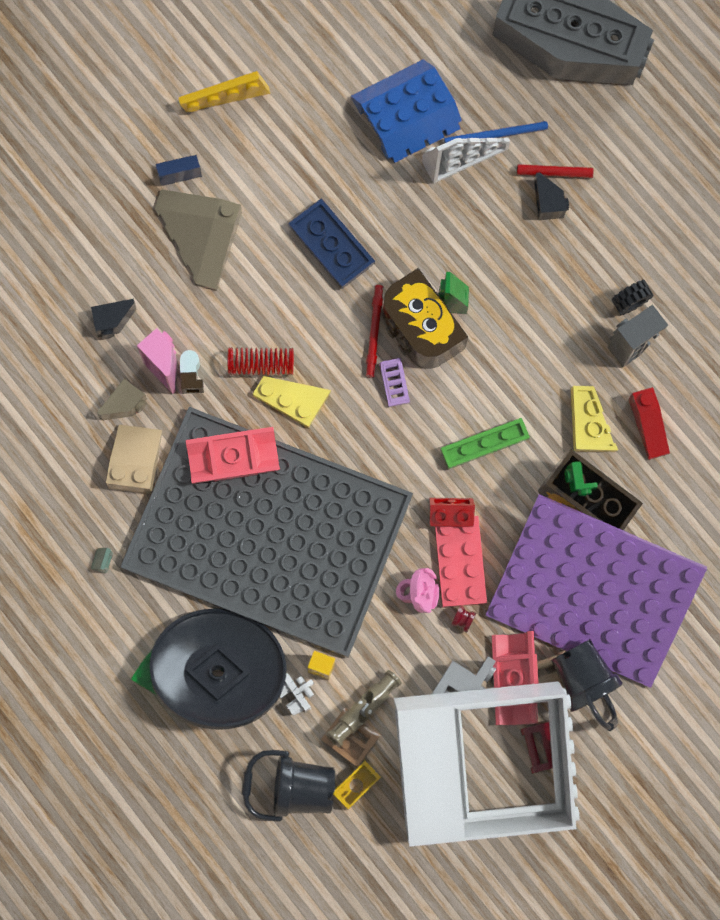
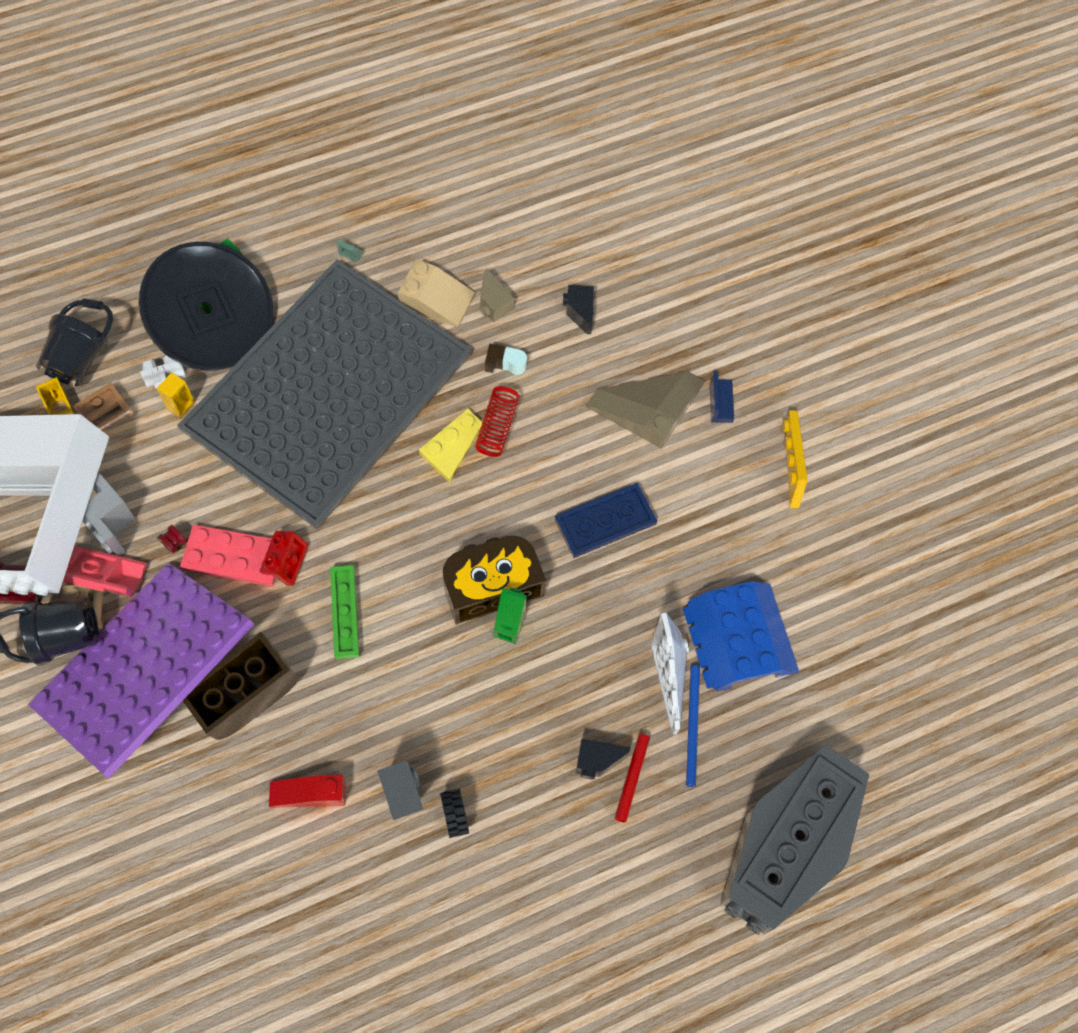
camera: 105 degrees right, 10 degrees down
(160, 358) = (519, 324): bright pink slope -> none
(232, 455) = (405, 371): coral piece -> none
(365, 706) = (120, 420): dark tan piece -> none
(371, 358) = (473, 528): red piece -> none
(389, 364) = (446, 534): lavender slope -> none
(423, 590) = (212, 505): bright pink tile -> none
(574, 477) = (254, 659): green bracket -> none
(588, 422) = (330, 726): light yellow wing -> none

